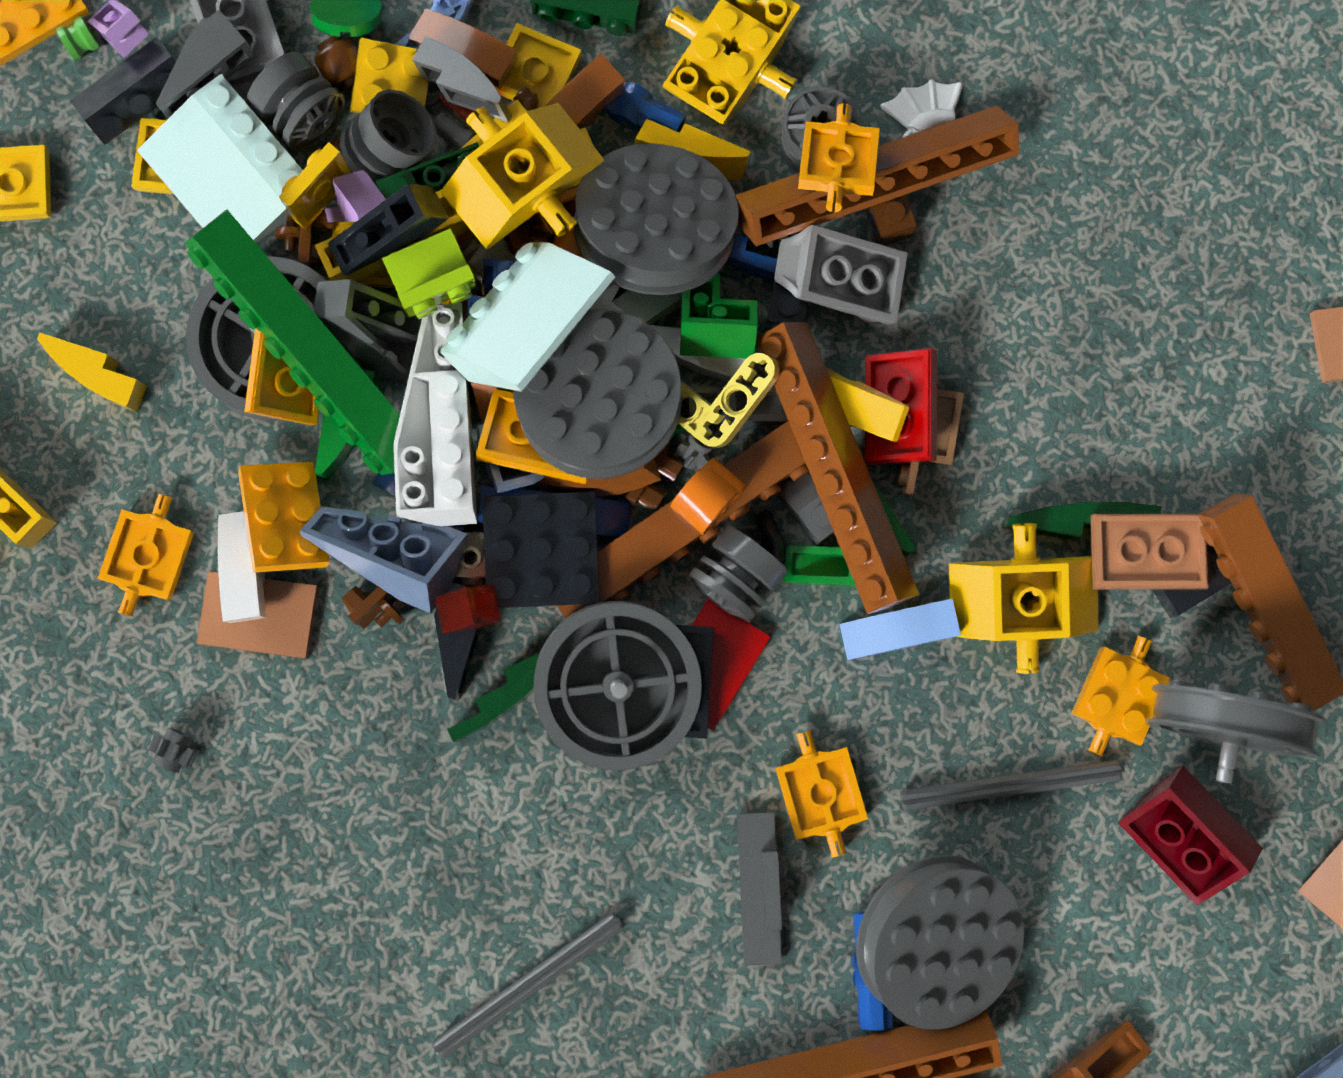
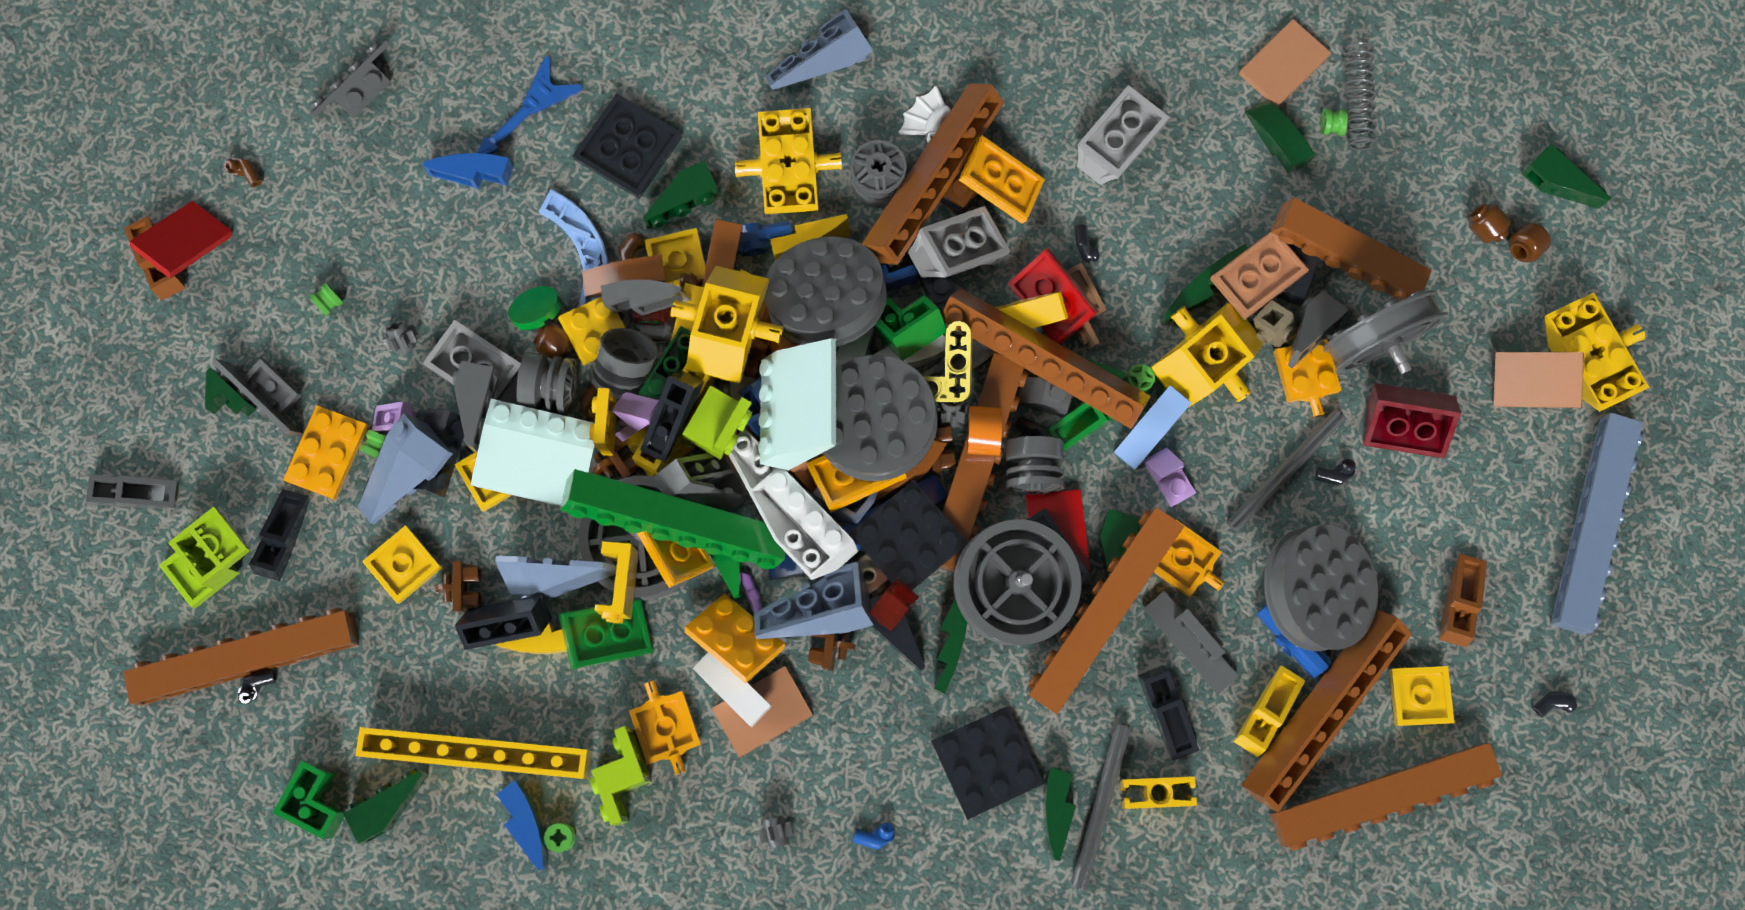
camera: 40 degrees left, 5 degrees down
(44, 569) = (619, 777): none -> lime bracket
(47, 250) = (461, 576): none -> reddish brown hips
(60, 320) = (503, 622): none -> black brick
(92, 74) = (405, 460): none -> sand blue wedge
(137, 307) = (549, 577): none -> sand blue wedge
(157, 411) = (597, 642): none -> green tile
(203, 371) = (627, 561): none -> yellow panel
(272, 836) = (877, 838): none -> blue arm
(342, 485) = (752, 594): none -> medium lavender piece
(446, 847) = (987, 762): none -> black plate
(477, 954) = (1056, 811): none -> dark green slope
(498, 17) = (630, 244): none -> reddish brown arm
(598, 1034) = (1166, 783): none -> yellow piece
(676, 943) = (1168, 712): none -> black slope
(692, 785) = (1105, 610): none -> dark orange brick
(763, 722) = (1113, 534): none -> dark green slope
(785, 1026) = (1269, 711): none -> yellow slope
(839, 158) = (908, 177): light orange plate -> none
(878, 695) = (1169, 477): none -> lavender slope
(934, 563) = (1142, 374): none -> bright green wheel
(948, 237) = (1001, 179): none -> light orange tile
(983, 373) = (1082, 242): none -> black arm
(1063, 833) = (1338, 475): none -> black arm
(1118, 285) = (1119, 136): none -> light grey slope
(1122, 619) = (1275, 324): none -> dark tan brick
(1175, 651) = (1317, 322): none -> dark grey slope
(1299, 416) = (1280, 136): none -> dark green slope

